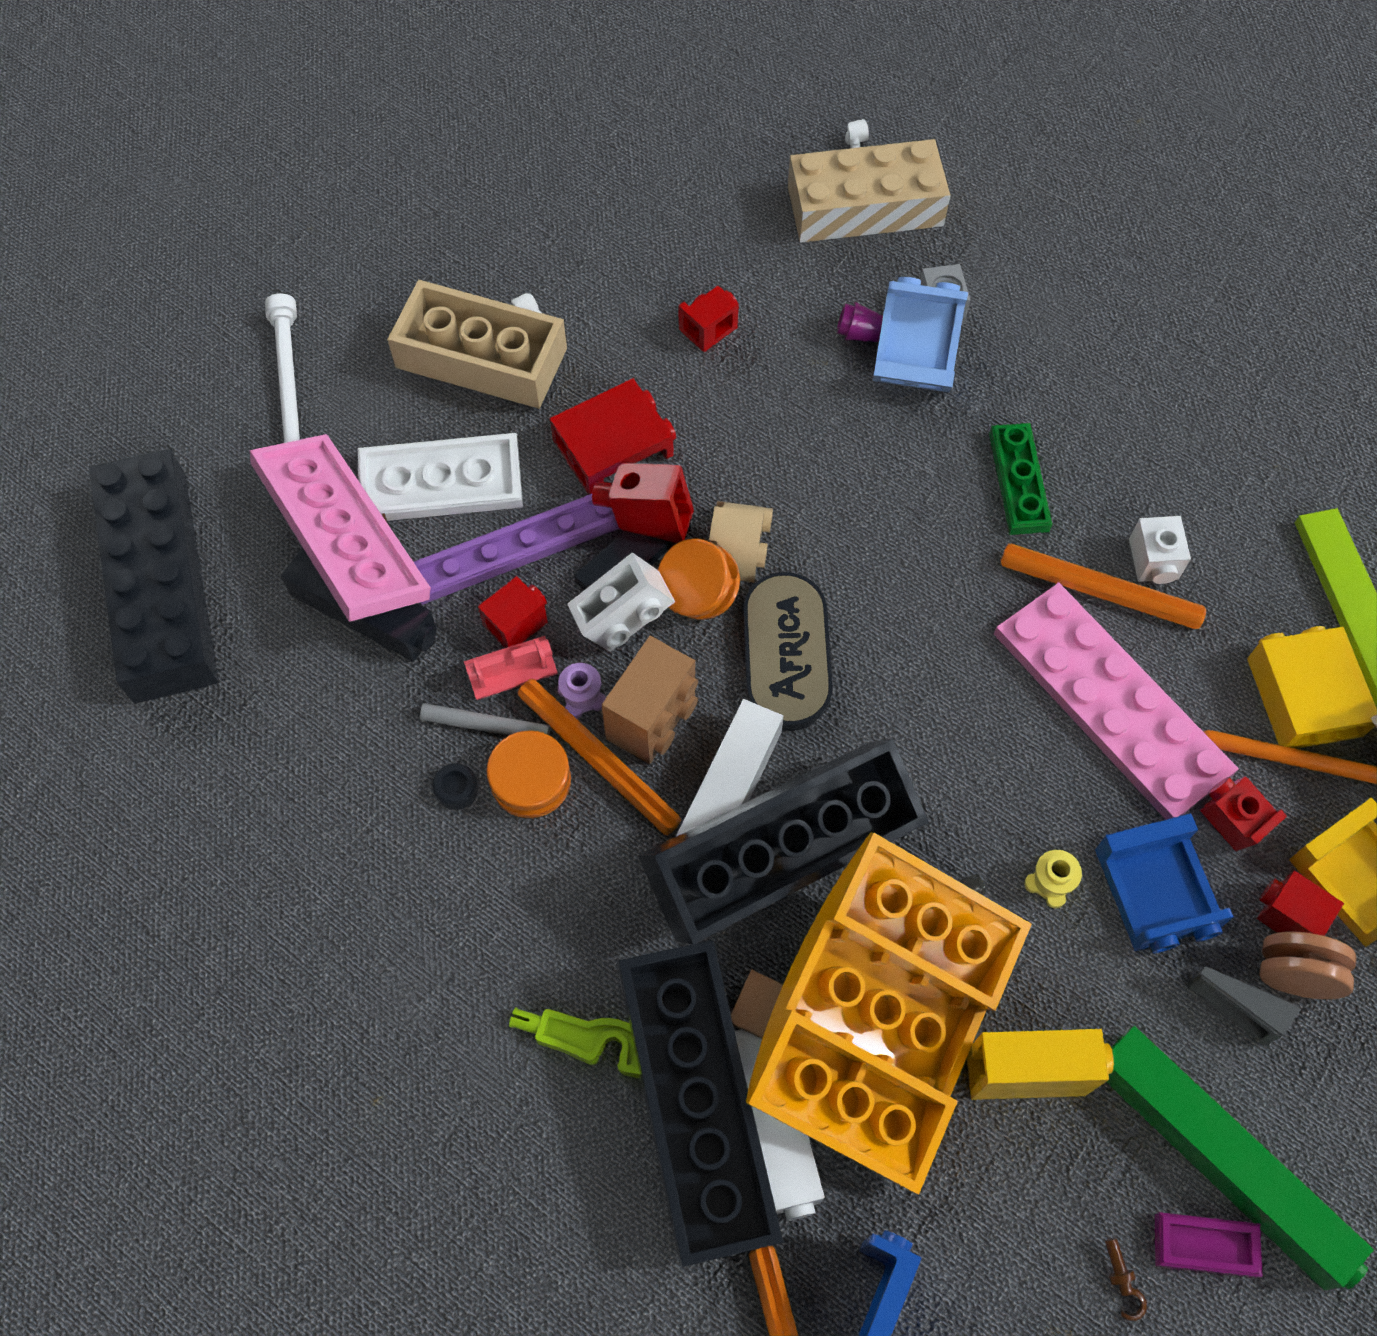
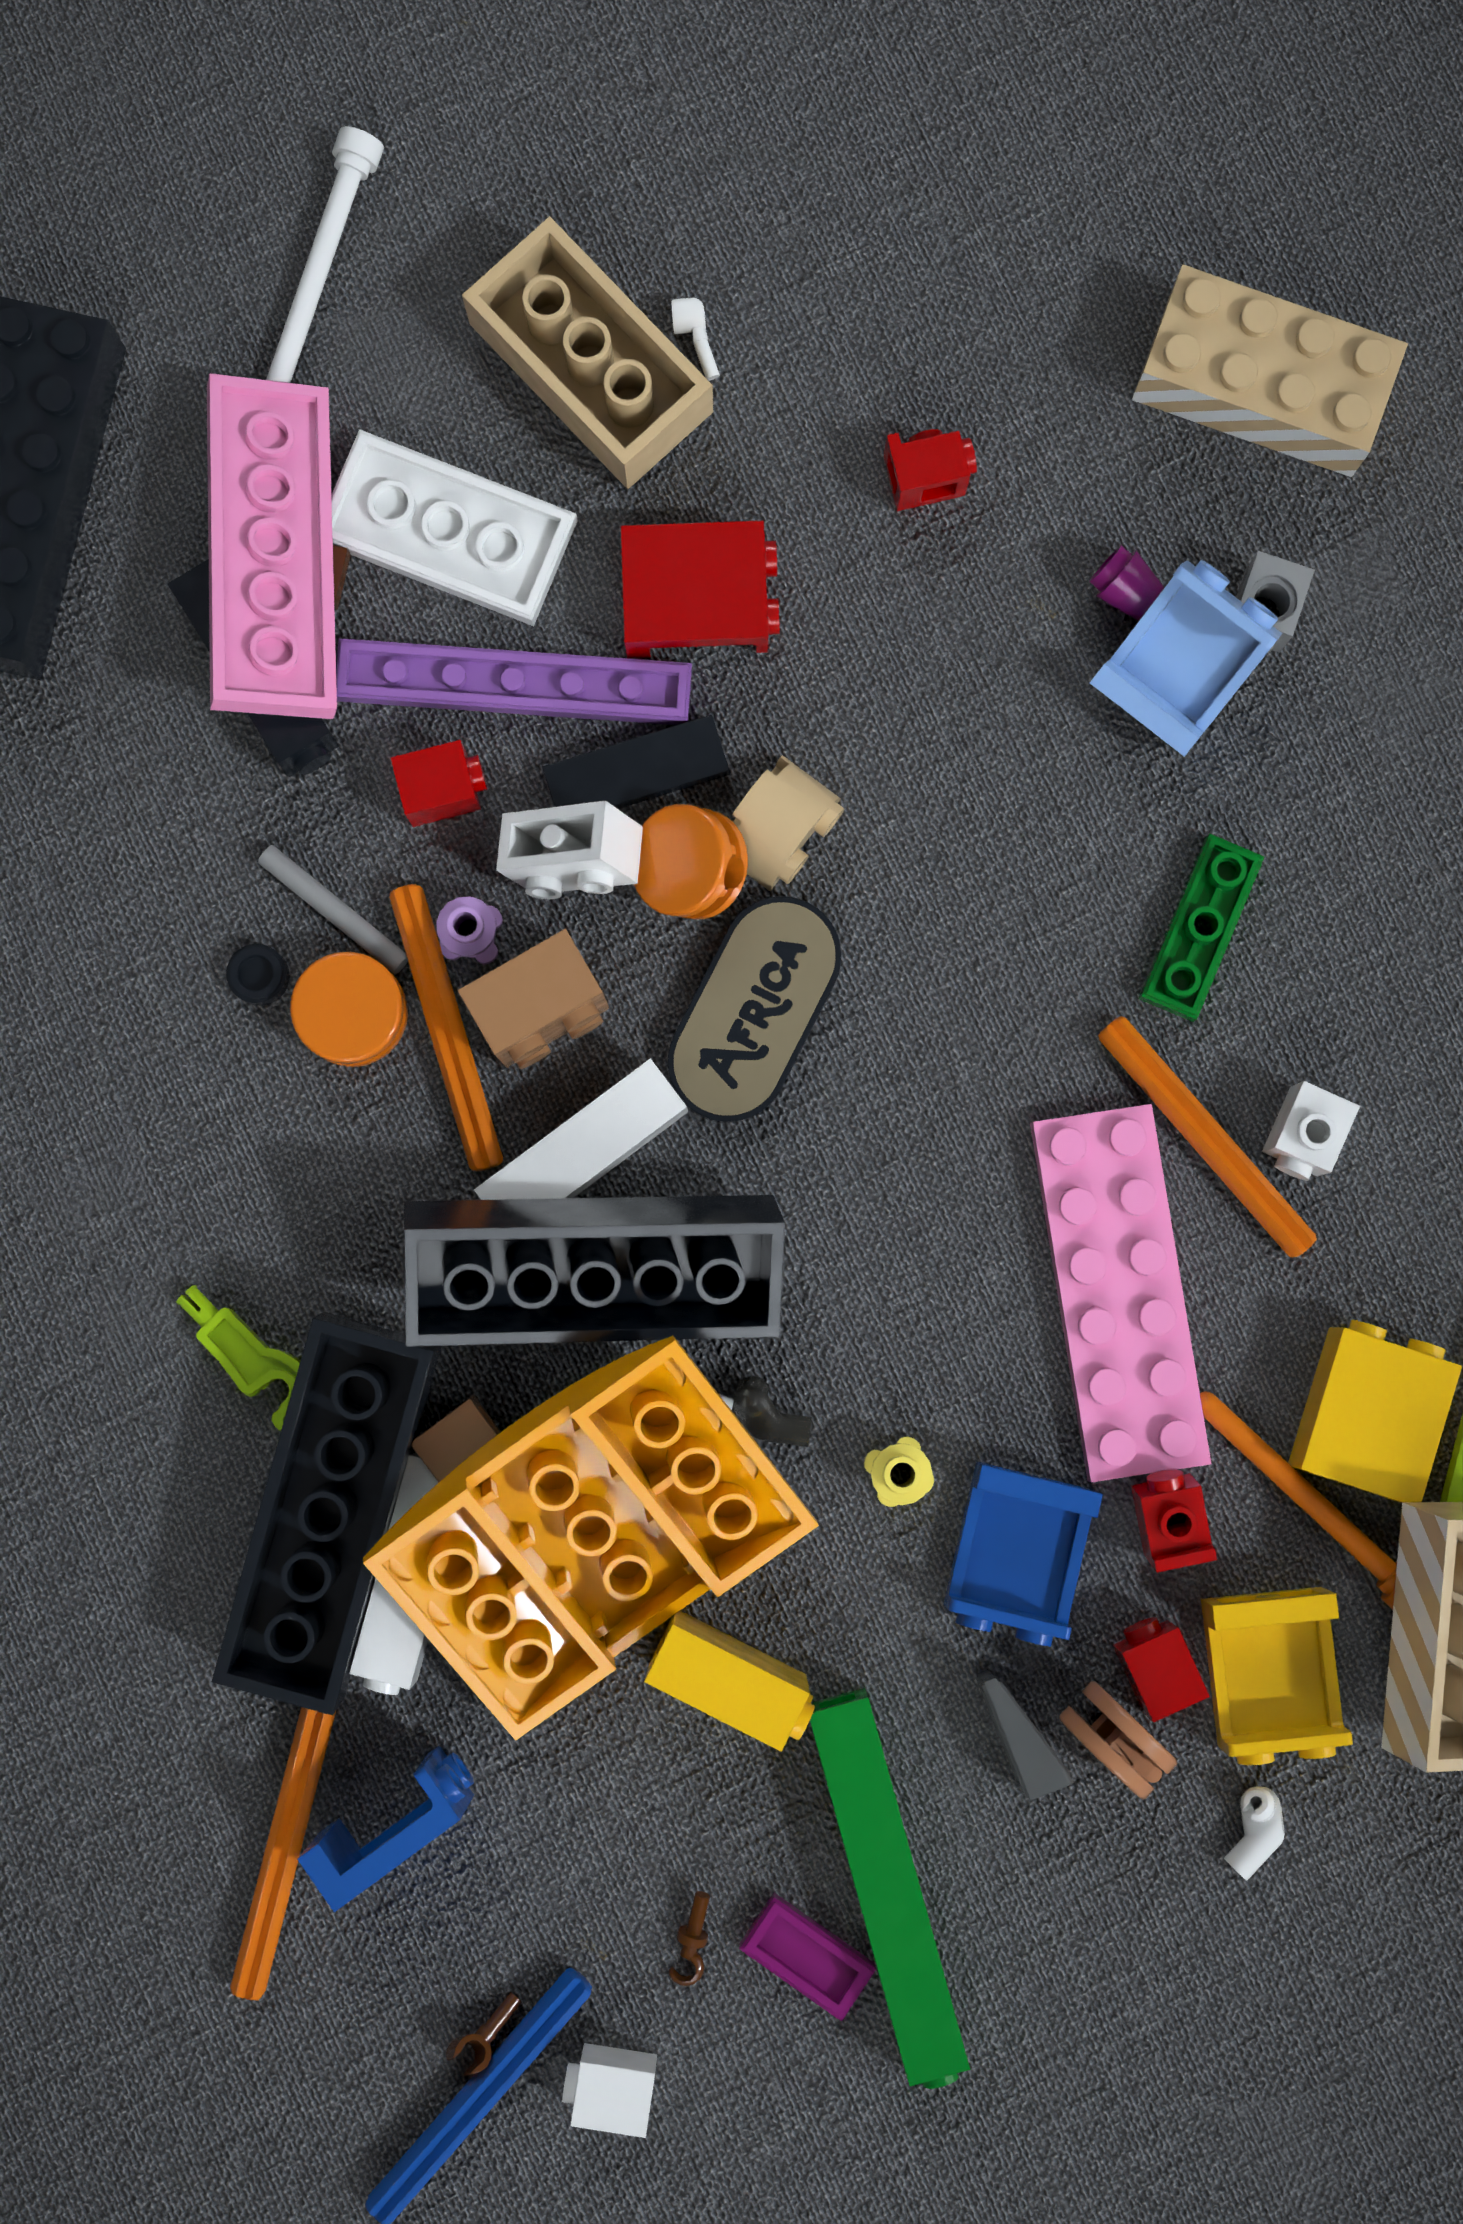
camera: 30 degrees right, 20 degrees up
(510, 667) = (399, 852): coral hinge -> none
(648, 500) = (678, 721): red torso -> none
(857, 133) = (1318, 257): white hand -> none

